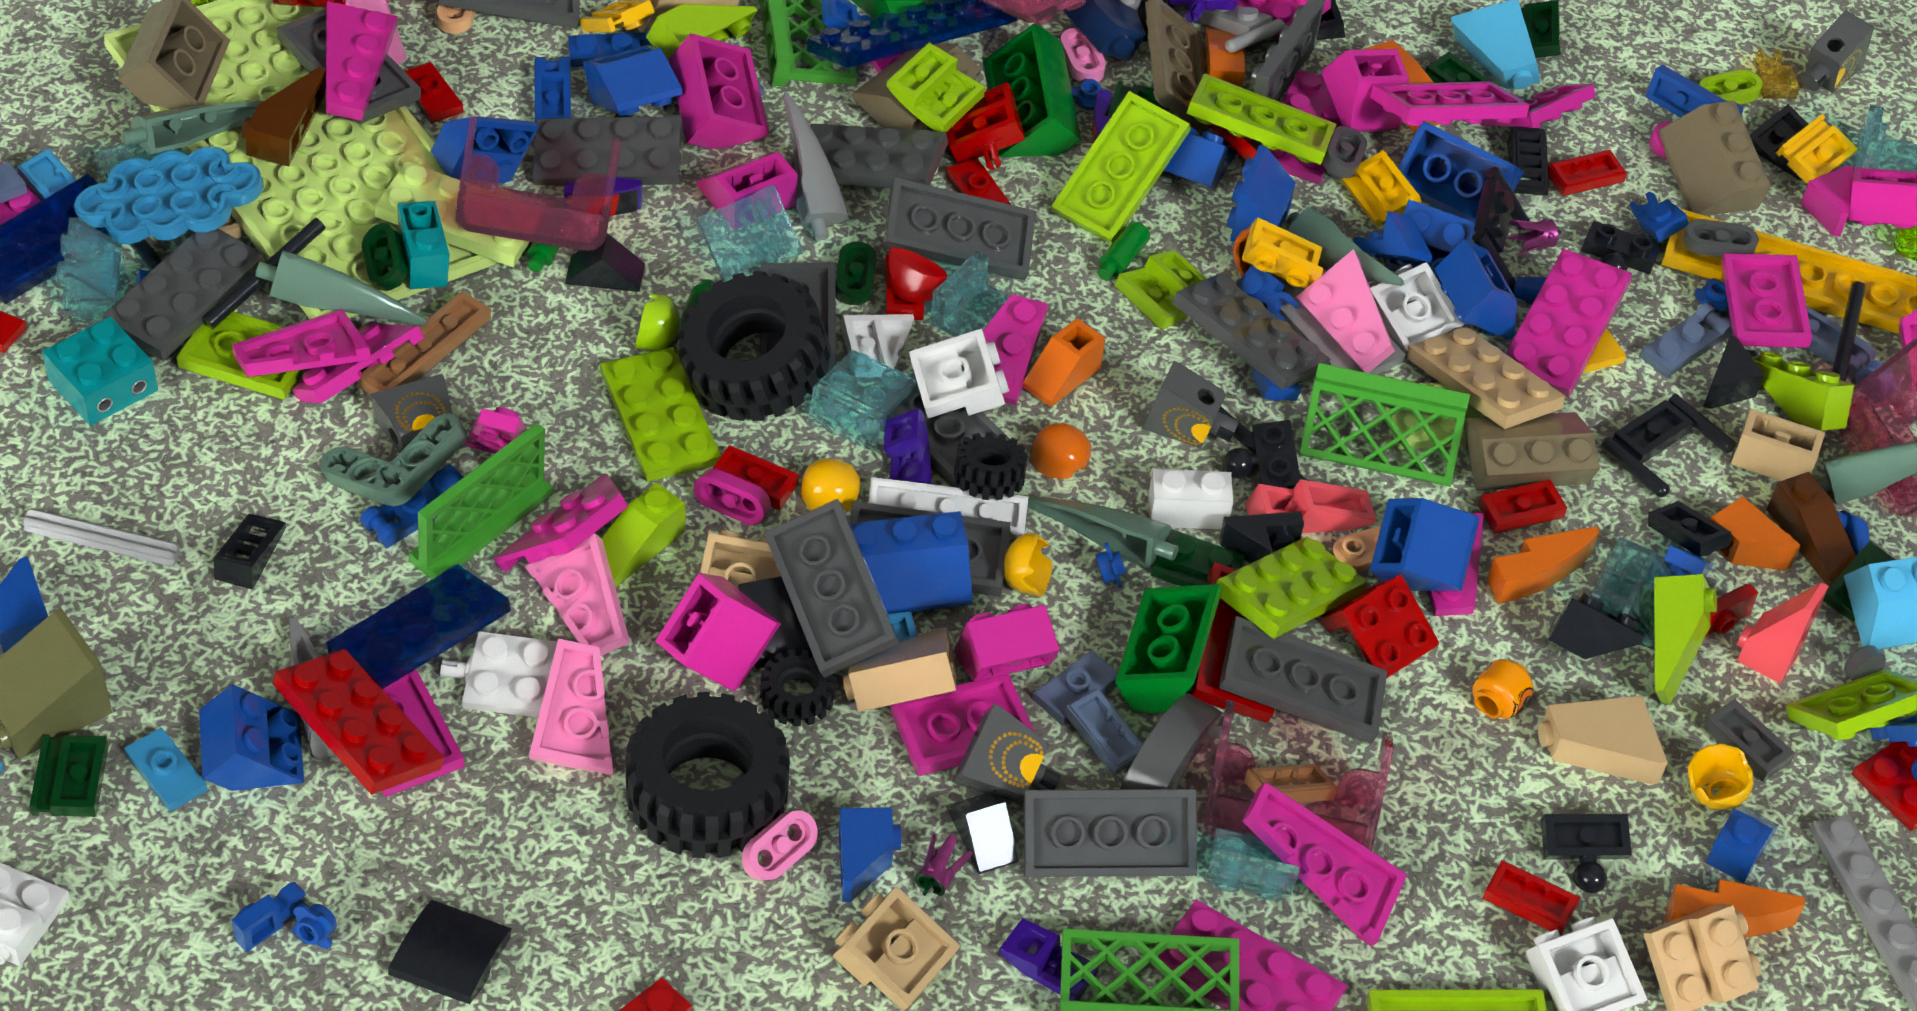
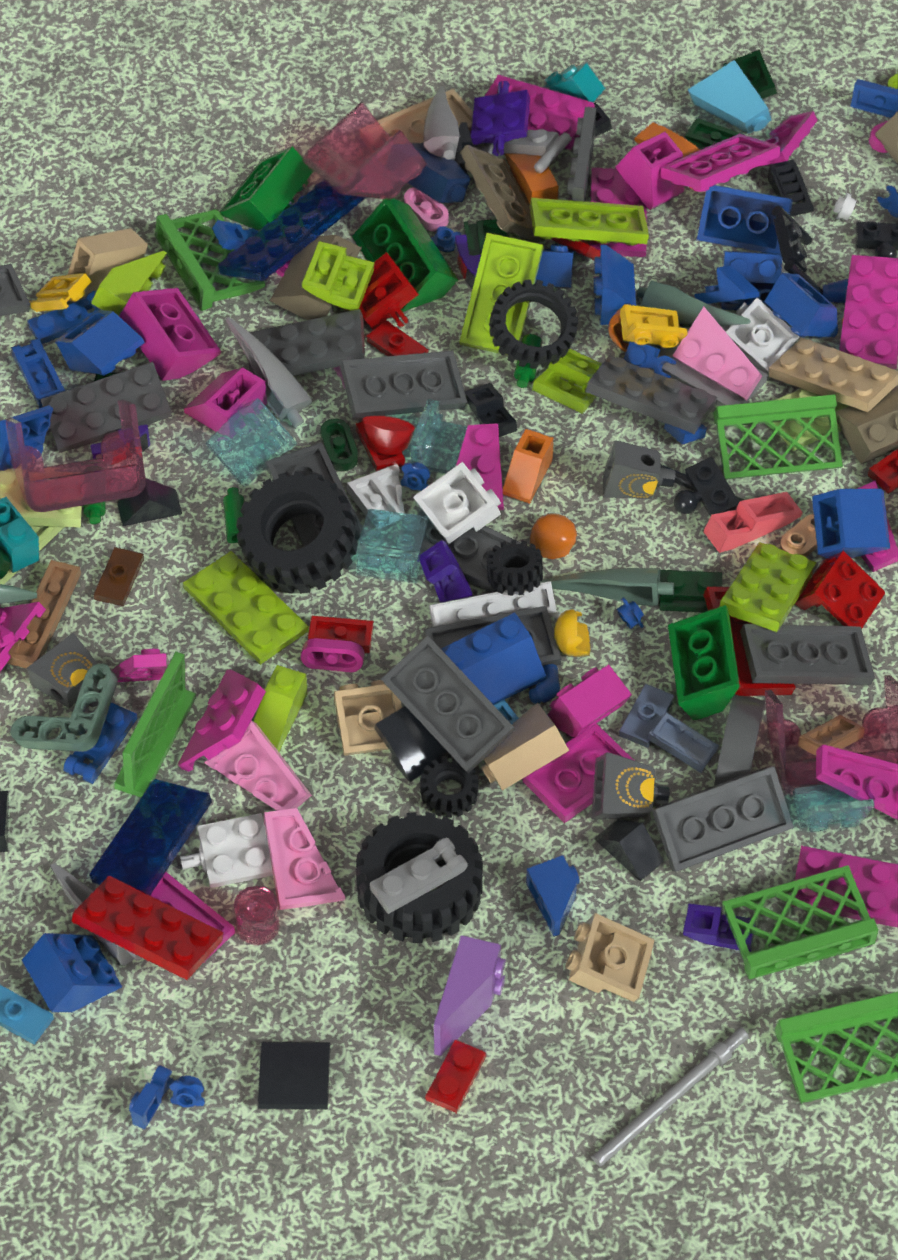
camera: 15 degrees left, 5 degrees up
(494, 752) = (256, 915): none -> clear pink wheel
(532, 335) = (118, 576): none -> reddish brown plate
(658, 324) = (214, 536): lime hair -> none
(696, 924) = (469, 989): none -> medium lavender slope
(697, 767) = (418, 876): none -> light grey plate
(718, 631) = (376, 765): dark pink slope -> none
(776, 846) = (493, 914): bright pink plate -> none
(830, 480) = (399, 622): yellow hair -> none
(927, 331) = (418, 471): none -> blue plate
(934, 870) = (612, 892): flat silver piece -> none
(956, 619) = (547, 688): none -> blue arm
(1053, 286) = (489, 408): none -> black slope
(1157, 175) = (547, 297): none -> black tyre
(1190, 498) = (666, 542): white piece -> none
(1260, 533) = (727, 553): black slope -> none
(1344, 152) = (659, 226): dark grey plate -> none
(1380, 188) = (693, 247): yellow plate -> none
(1543, 234) = (823, 245): flat silver piece -> none
(1585, 200) = (844, 207): none -> white plate
(1586, 172) = (835, 183): red plate -> none

